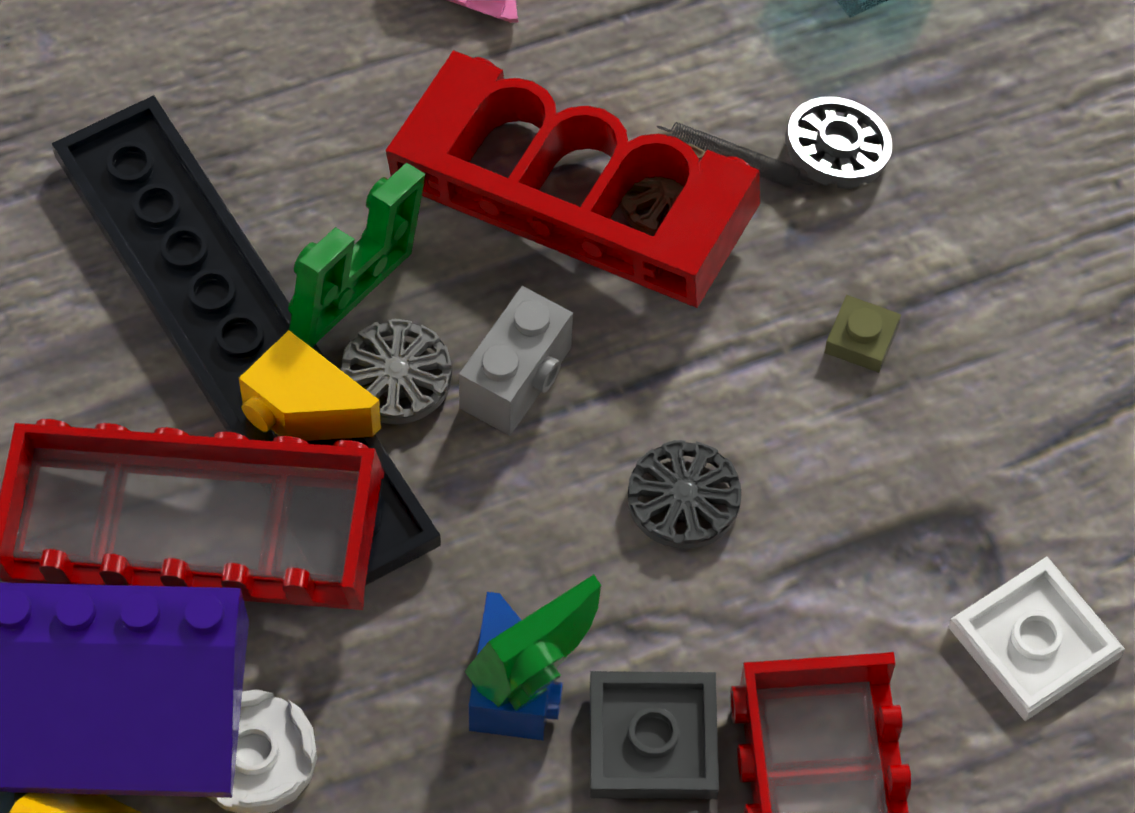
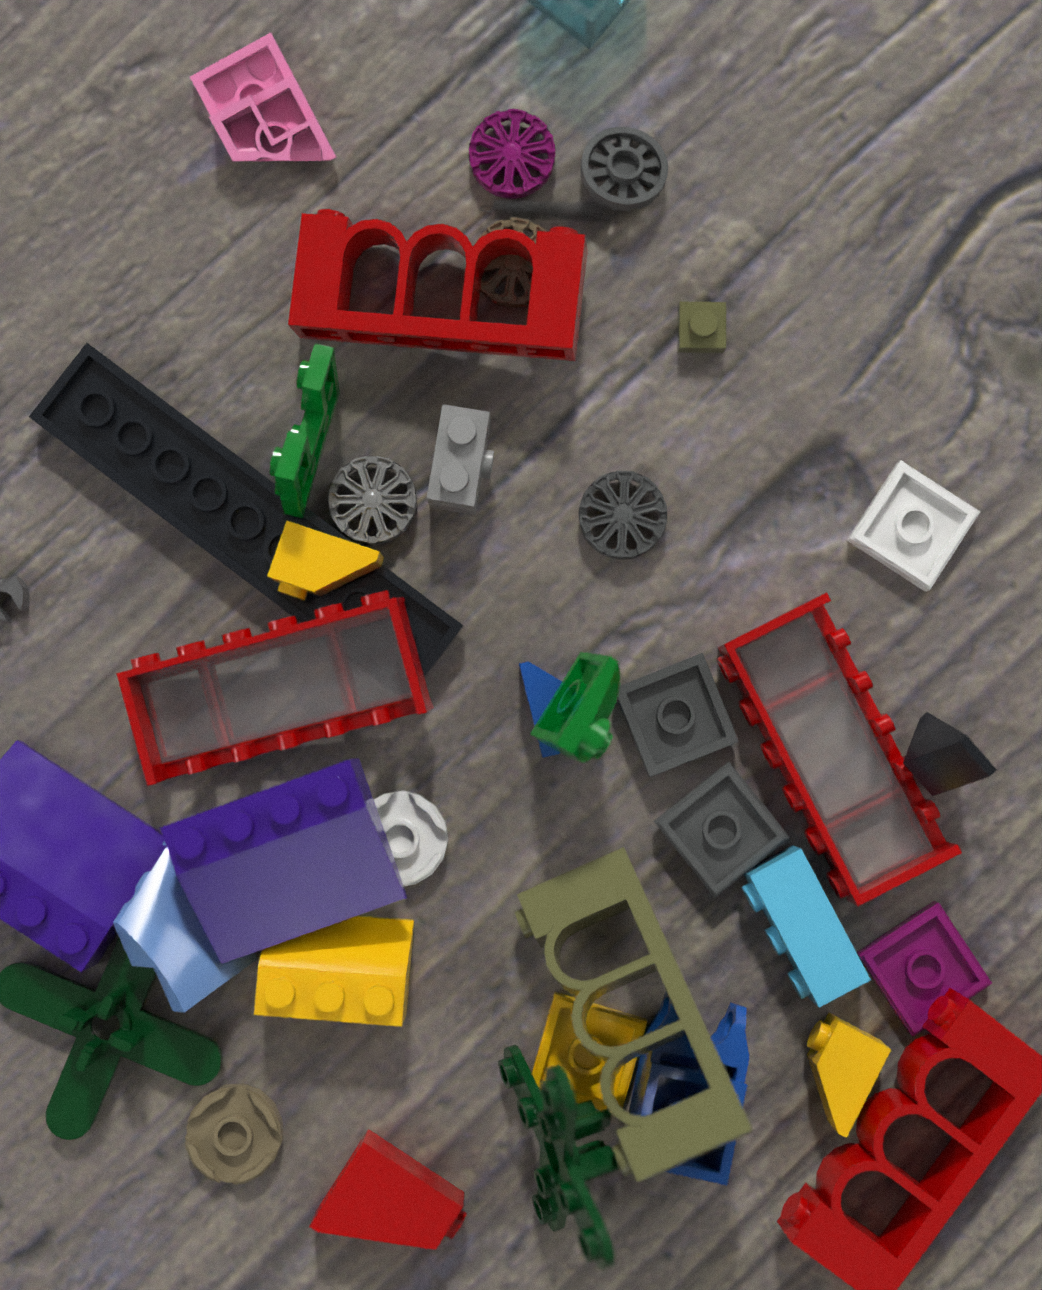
camera: 20 degrees left, 25 degrees up
(717, 85) = (512, 153): none -> magenta wheel

